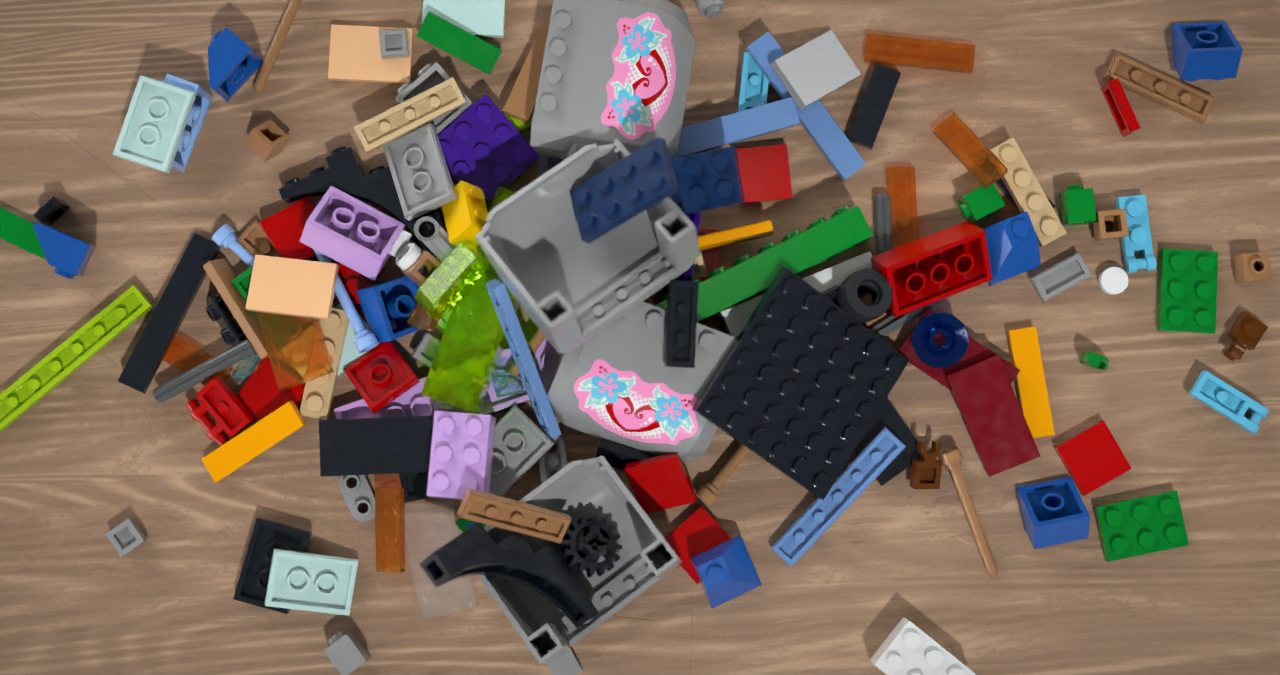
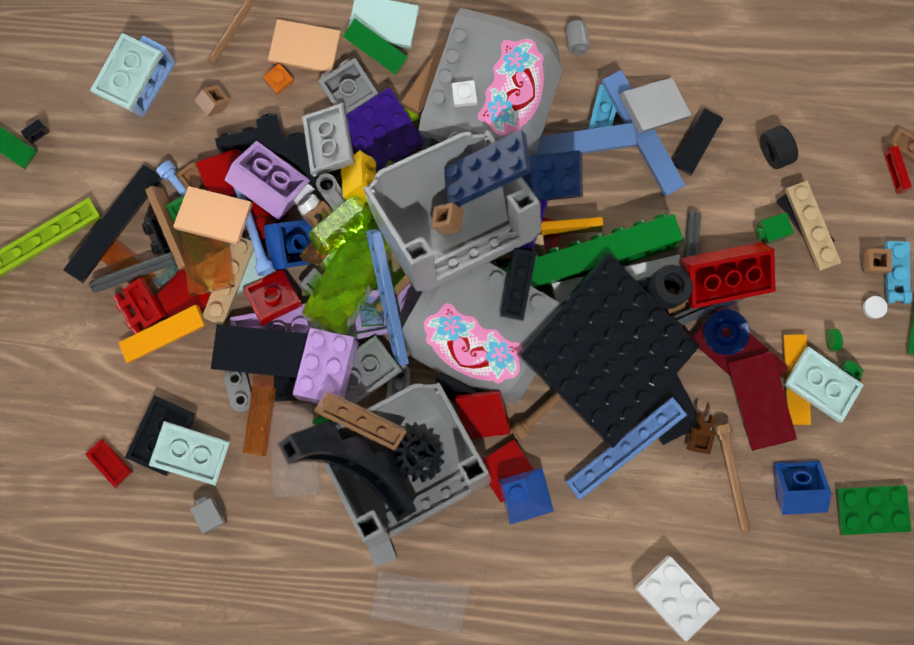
camera: 20 degrees right, 5 degrees down
(64, 251) = (39, 162): blue slope -> none
(126, 537) = (48, 395): light grey plate -> none
(214, 607) = (108, 463): none -> red tile
(230, 63) = (193, 36): blue slope -> none
(345, 100) = (278, 79): none -> orange plate
(394, 43) = (324, 40): light grey tile -> none
(410, 115) = (327, 95): tan plate -> none
(580, 94) = (464, 94): none -> white plate
(584, 257) = (447, 219): none -> medium nougat plate
(765, 173) = (602, 182): red tile -> none
(902, 192) = (711, 221): clear orange tile -> none
(919, 53) = (740, 105): clear orange tile -> none
(970, 151) = (771, 186): clear orange tile -> none
(973, 100) = (779, 147): none -> black tyre
(1012, 247) = (795, 268): blue slope -> none
(1060, 277) = (831, 298): light grey tile -> none
(1063, 384) = (823, 384): none -> light aqua tile
(1069, 328) = (834, 339): none -> green tile
(1077, 206) = (852, 243): green brick -> none
(1092, 458) = (840, 448): red tile -> none

